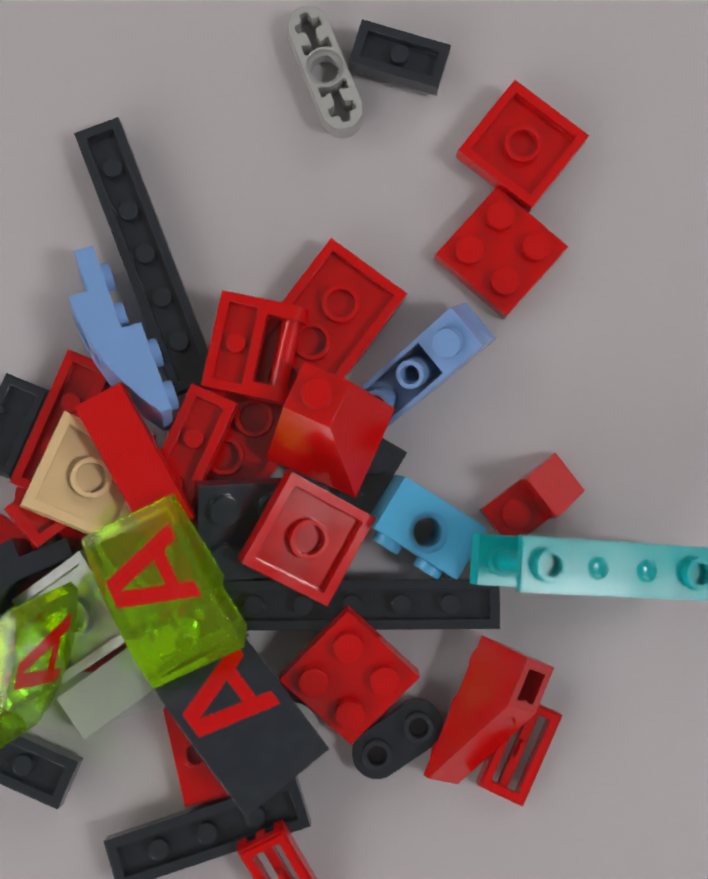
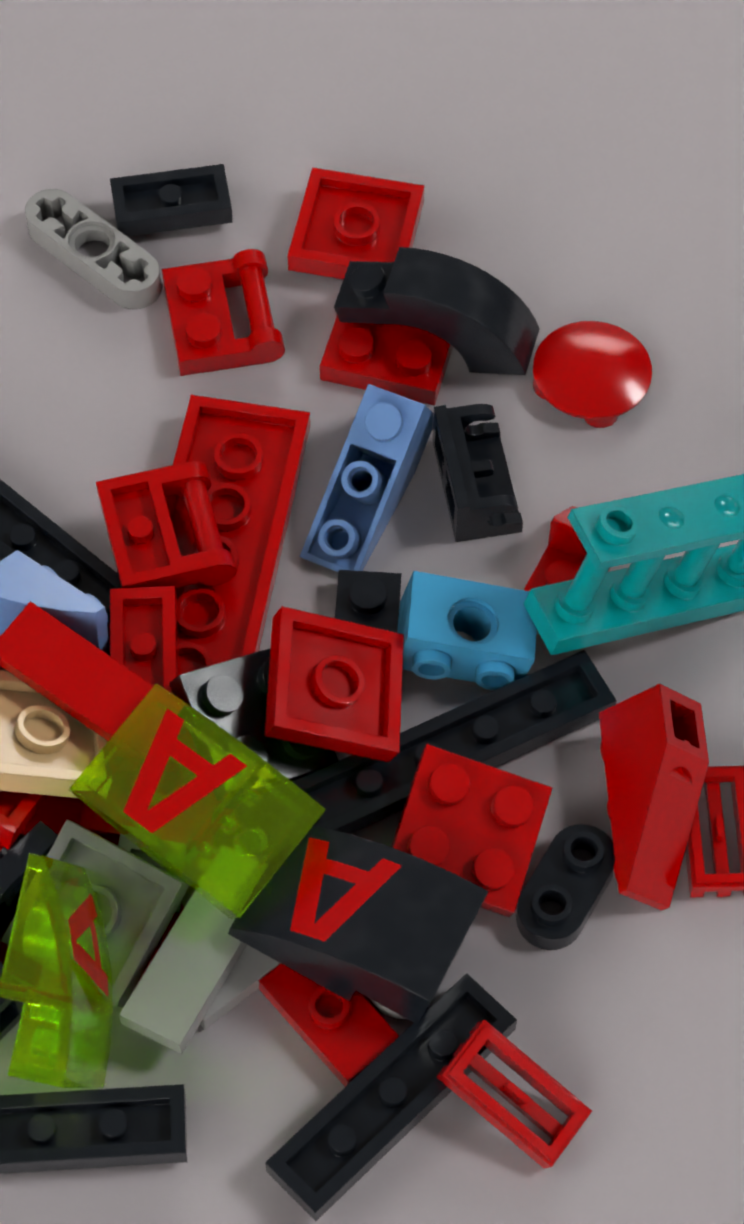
camera: 25 degrees left, 25 degrees down
(329, 429) = (295, 558): red slope -> none
(376, 166) = (202, 315): none -> red plate
(500, 396) = (474, 473): none -> black hinge
(545, 250) = (447, 299): none -> black arch
(629, 349) = (592, 371): none -> red dish

